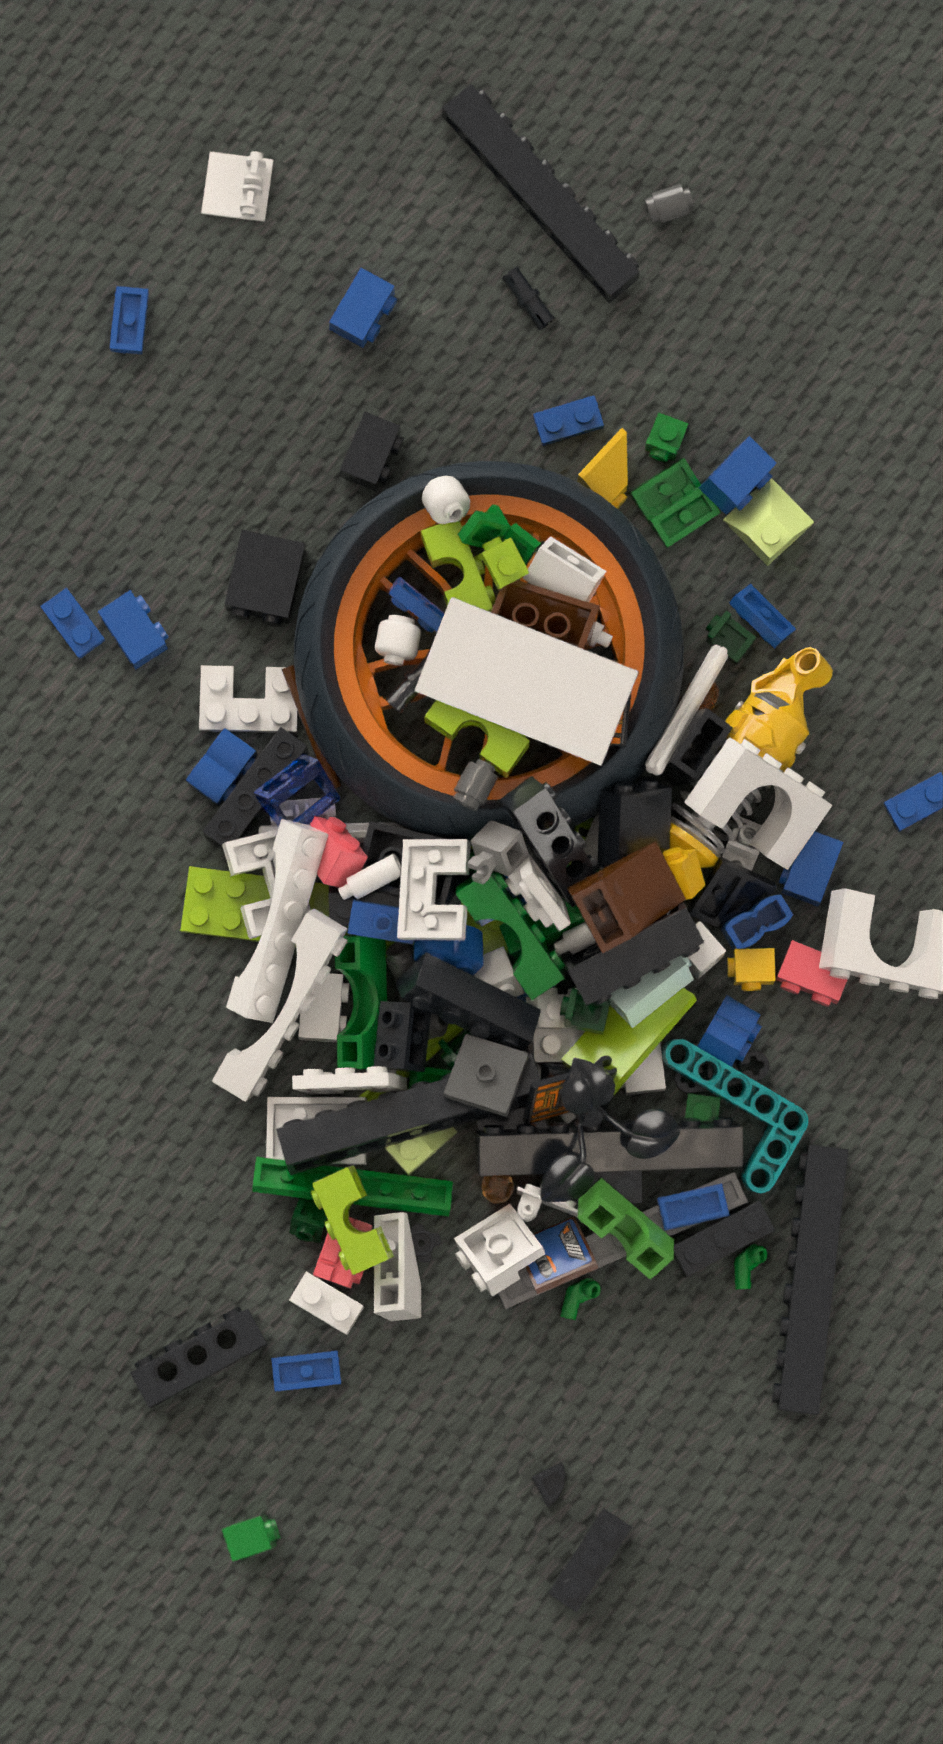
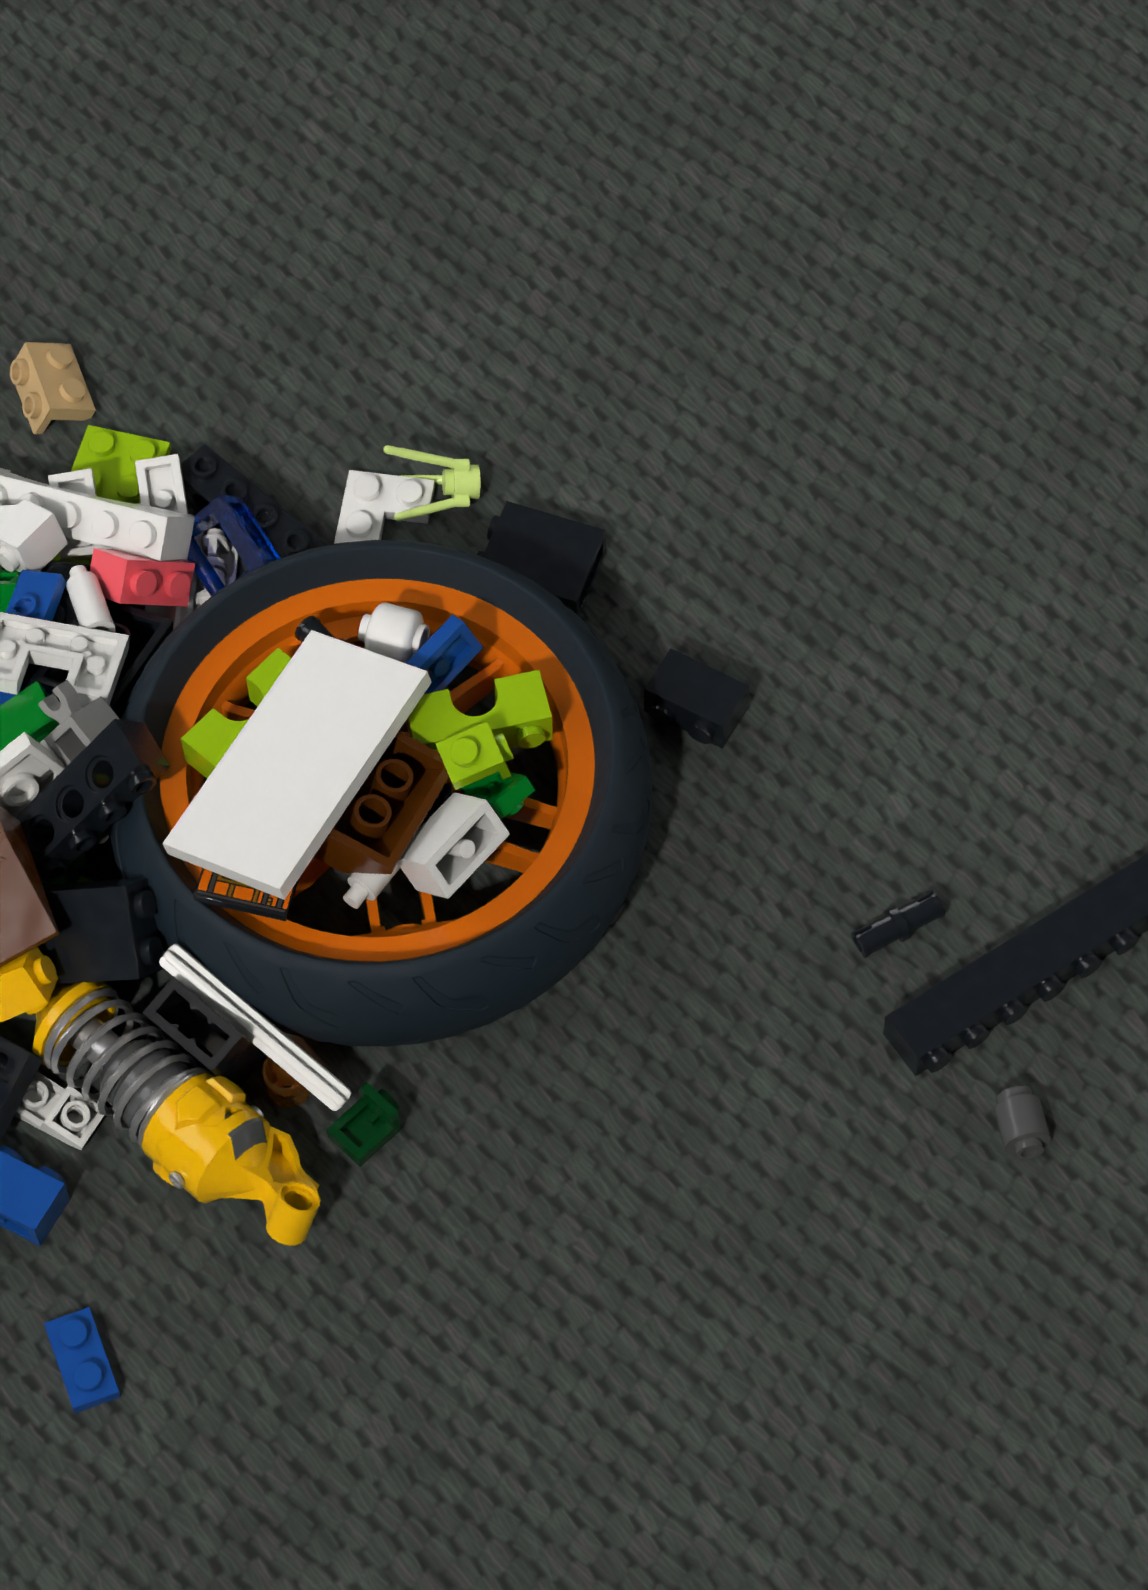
camera: 100 degrees right, 20 degrees down
(72, 623) = (515, 347): blue plate -> none
(129, 320) = (915, 442): blue plate -> none
(133, 629) = (493, 406): blue brick -> none
(148, 965) = (50, 385): none -> tan bracket
(202, 647) = (460, 481): none -> yellowish green plant
(222, 767) = (296, 485): blue brick -> none
(237, 186) = (1093, 587): white hinge -> none
(362, 308) = (903, 713): blue brick -> none
(445, 500) = (578, 704): white head -> none
(475, 784) = (172, 700): dark grey brick -> none
(484, 527) = (528, 741): green bracket -> none
(568, 420) = (715, 958): blue plate -> none
(608, 471) = (624, 985): yellow slope -> none
(665, 438) = (671, 1079): green bracket -> none
(674, 502) = (576, 1082): green slope -> none
(738, 475) = (597, 1159): blue brick -> none
(740, 771) = (141, 1063): white arch -> none
(762, 616) = (390, 1173): blue plate -> none
(769, 522) = (529, 1203): yellowish green slope -> none

